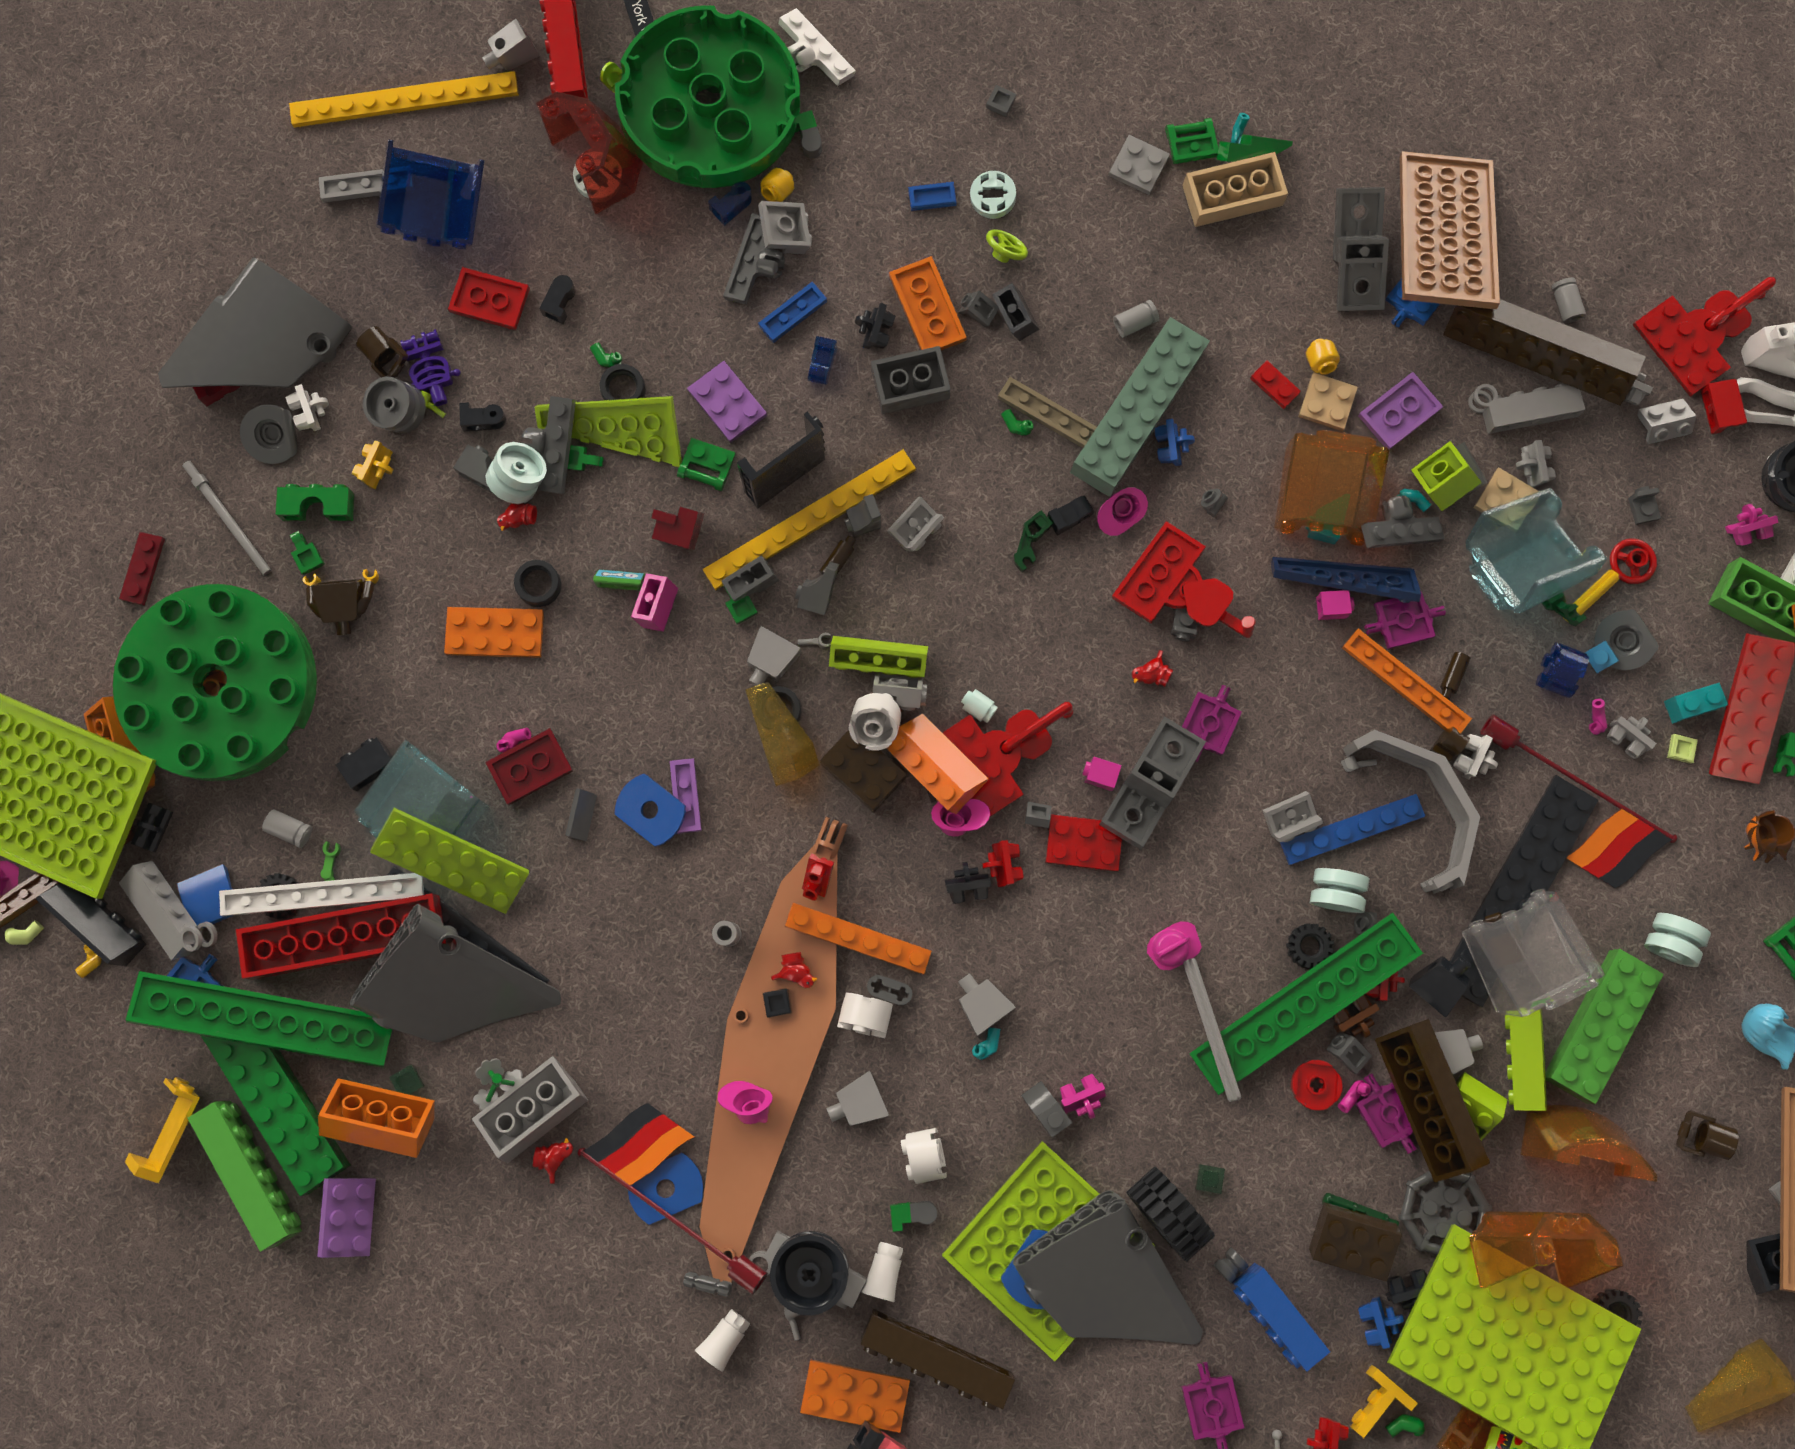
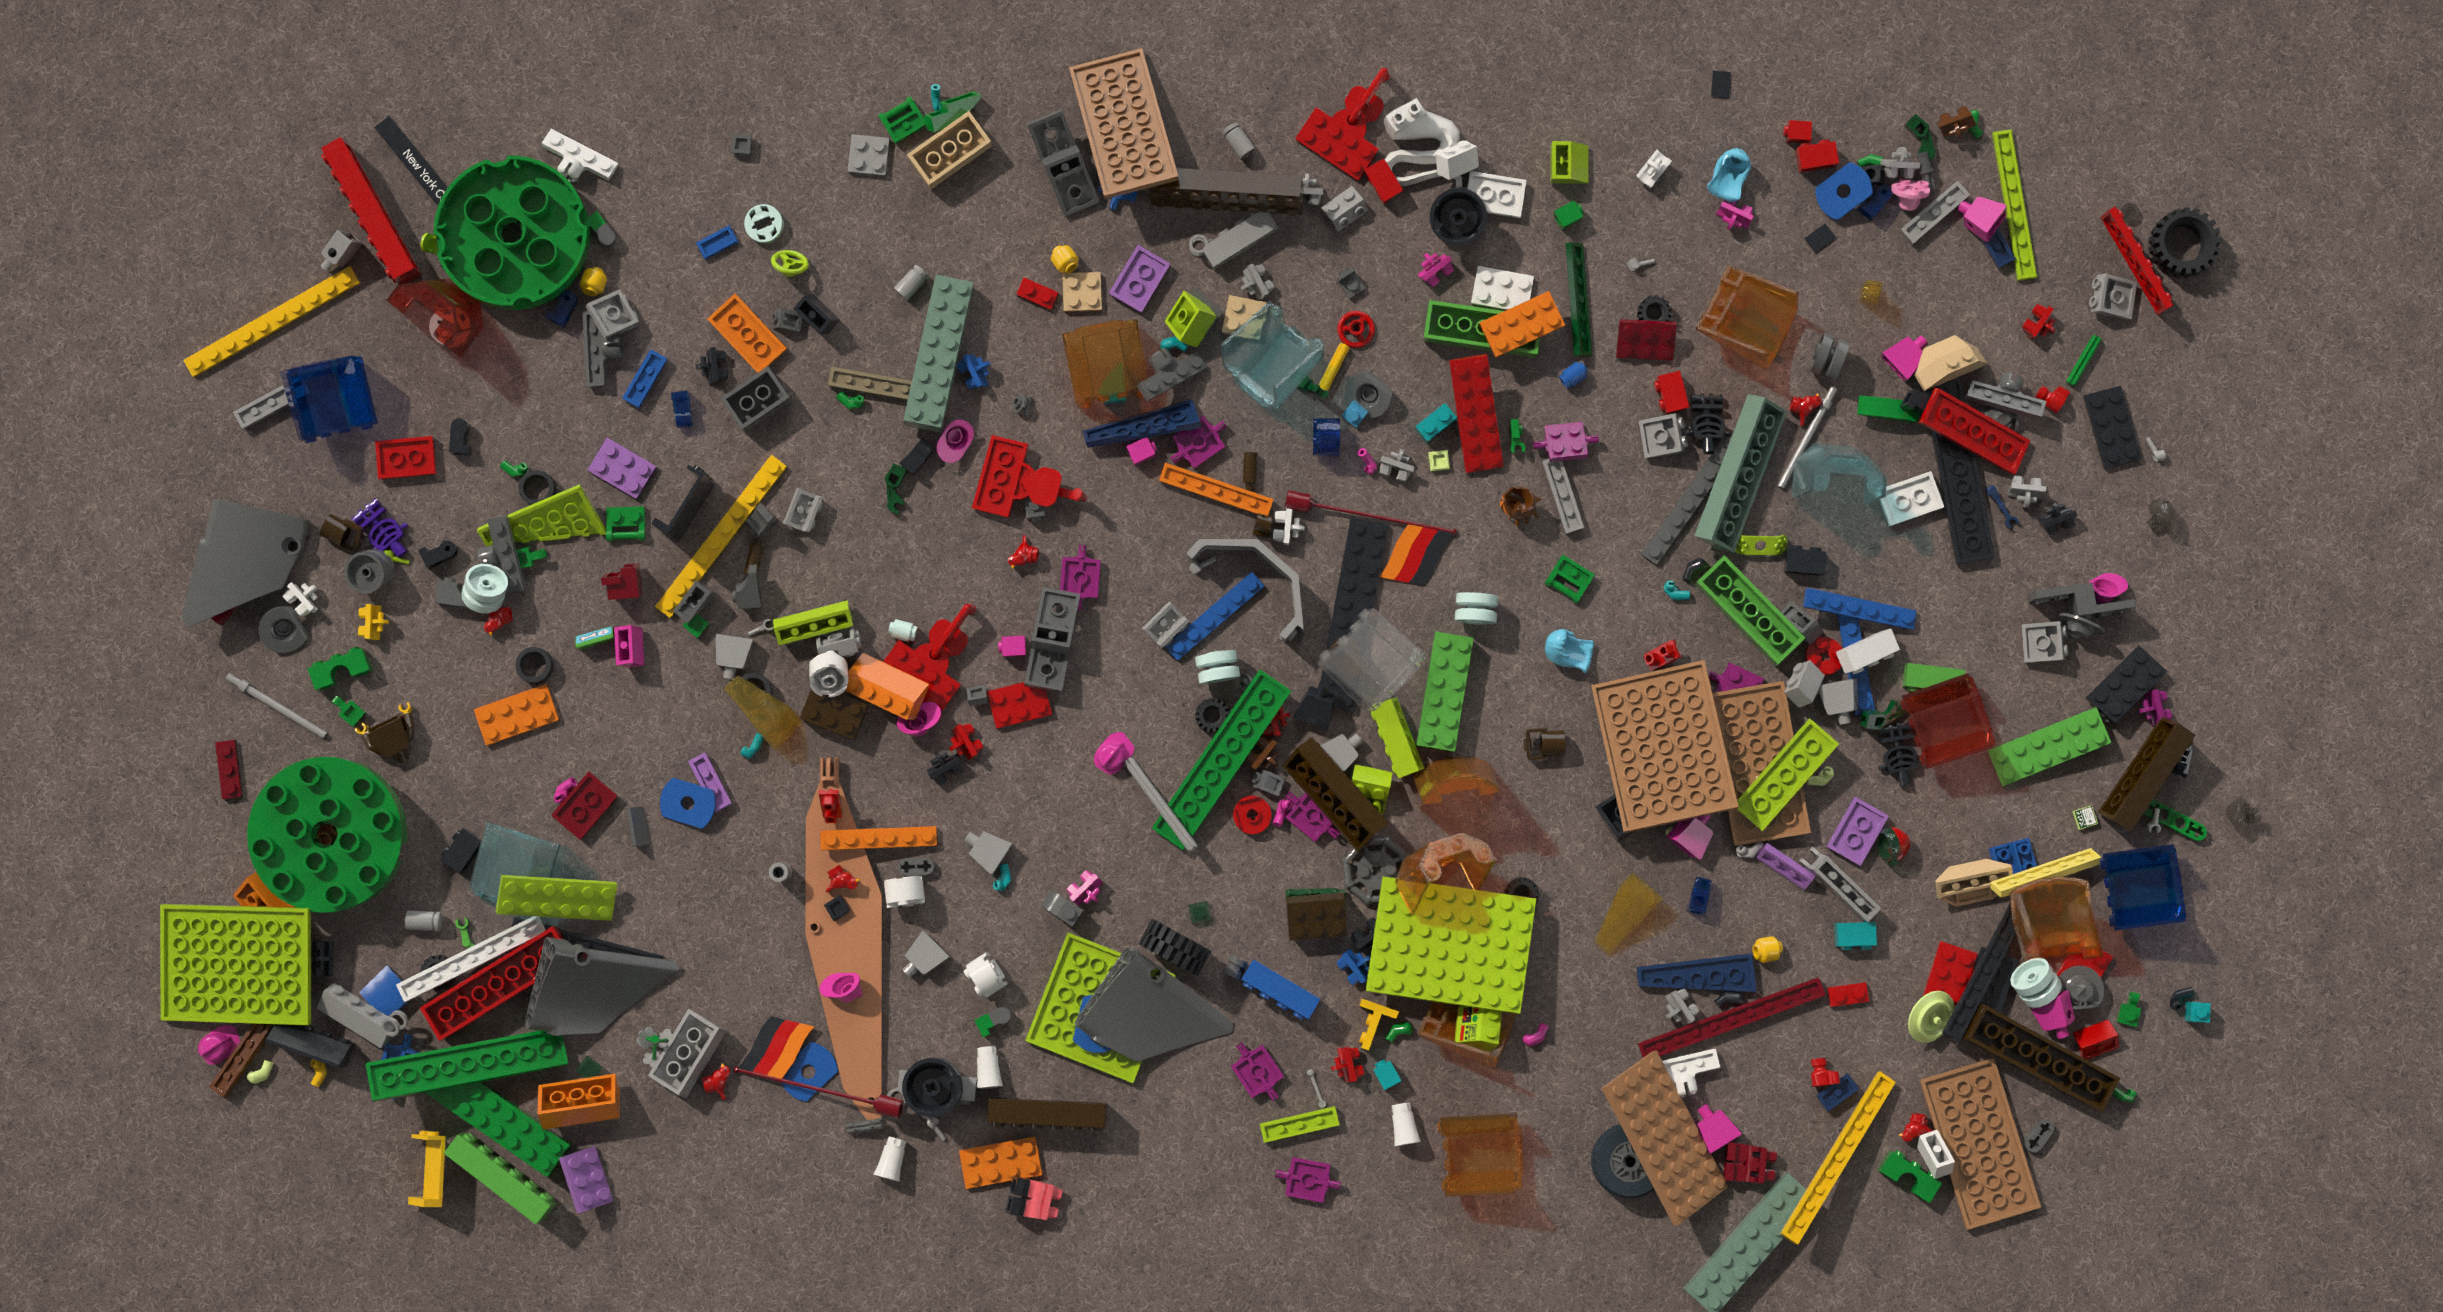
camera: 20 degrees left, 5 degrees up
(753, 775) = (754, 748): none -> teal arm

